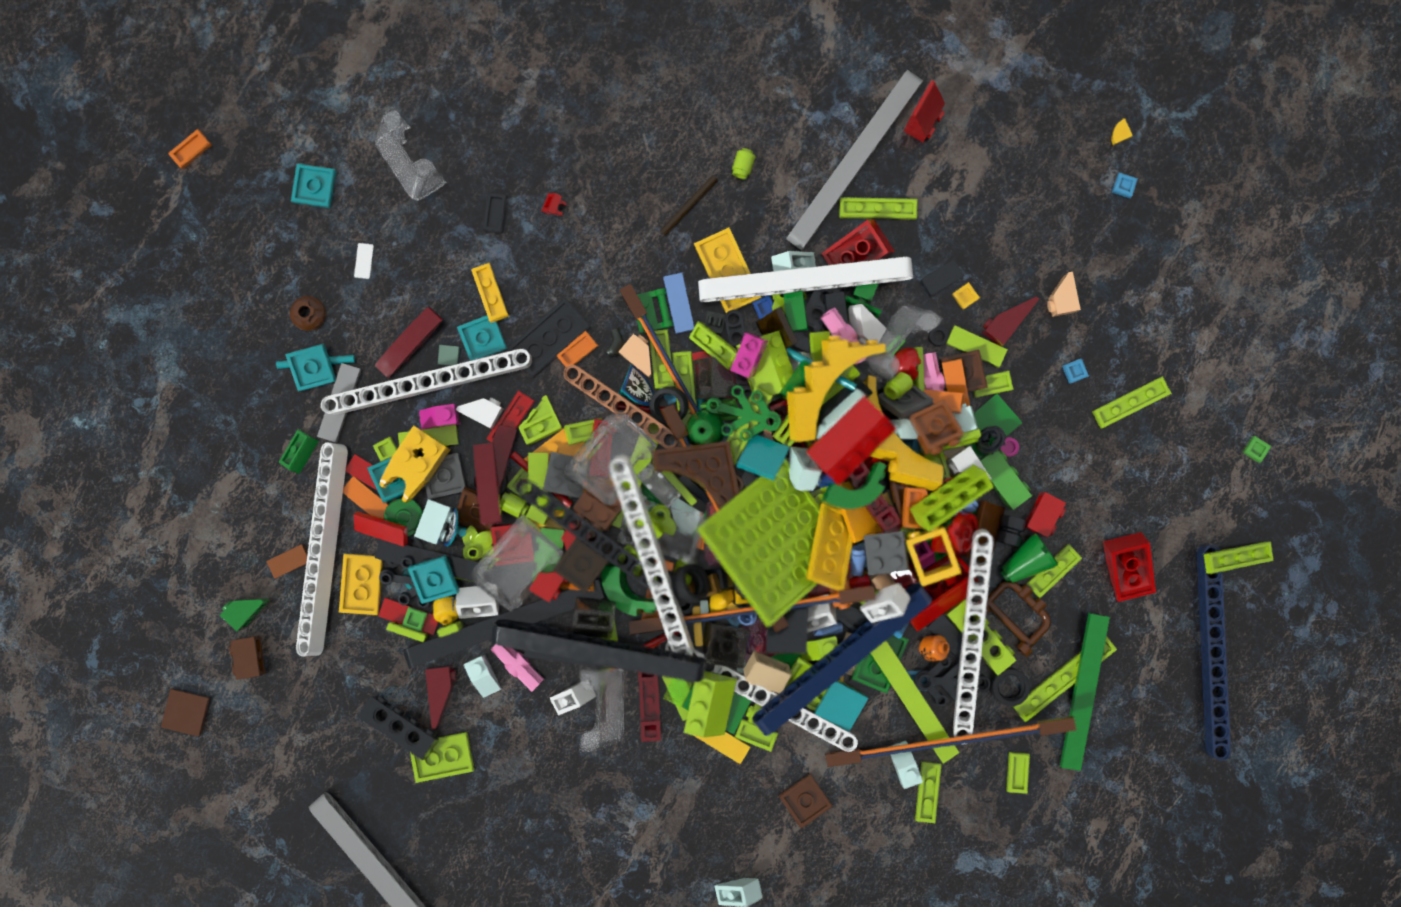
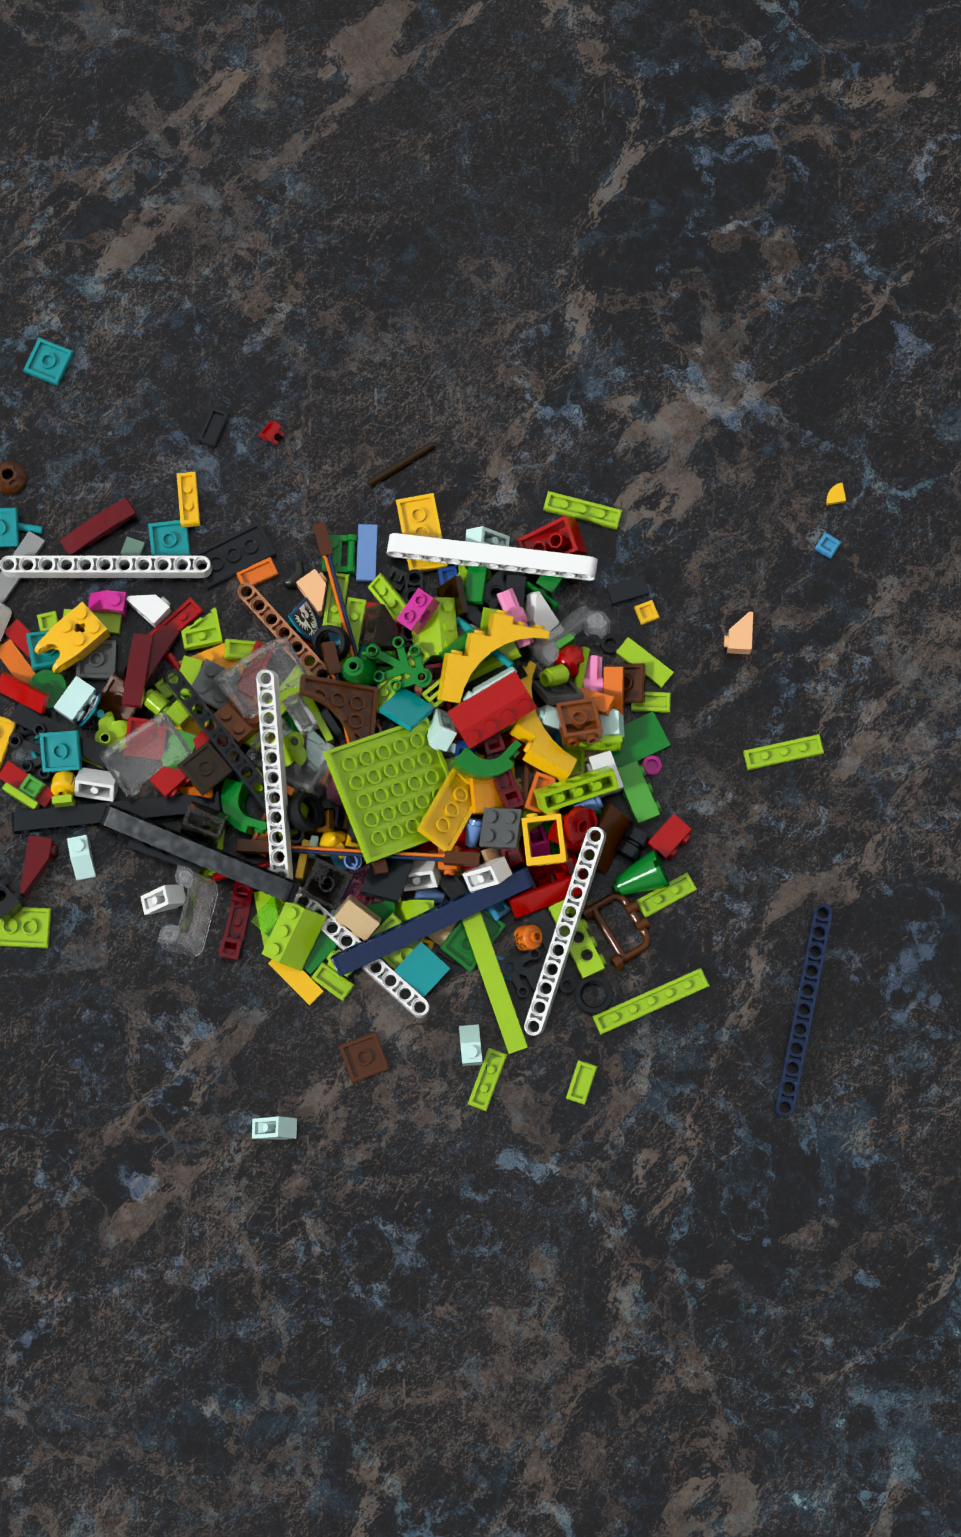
camera: 15 degrees right, 10 degrees down
(363, 261) = (76, 442): white sticker -> none
(416, 178) = (148, 377): clear windscreen -> none
(518, 666) = (118, 855): bright pink piece -> none
(743, 163) = (463, 437): lime brick -> none
(854, 160) = (570, 459): light grey beam -> none
(926, 113) = (647, 430): red slope -> none
(999, 440) = (627, 752): black gear -> none
(1003, 325) = (677, 646): dark red slope -> none
(1045, 727) = (613, 1033): piece -> none
(1075, 371) = (735, 709): dark azure tile -> none
(1085, 690) = (665, 1017): green tile -> none
(1130, 566) = (741, 908): red slope -> none
(1238, 557) = (849, 922): lime tile -> none
(1256, 449) = (896, 827): bright green tile -> none

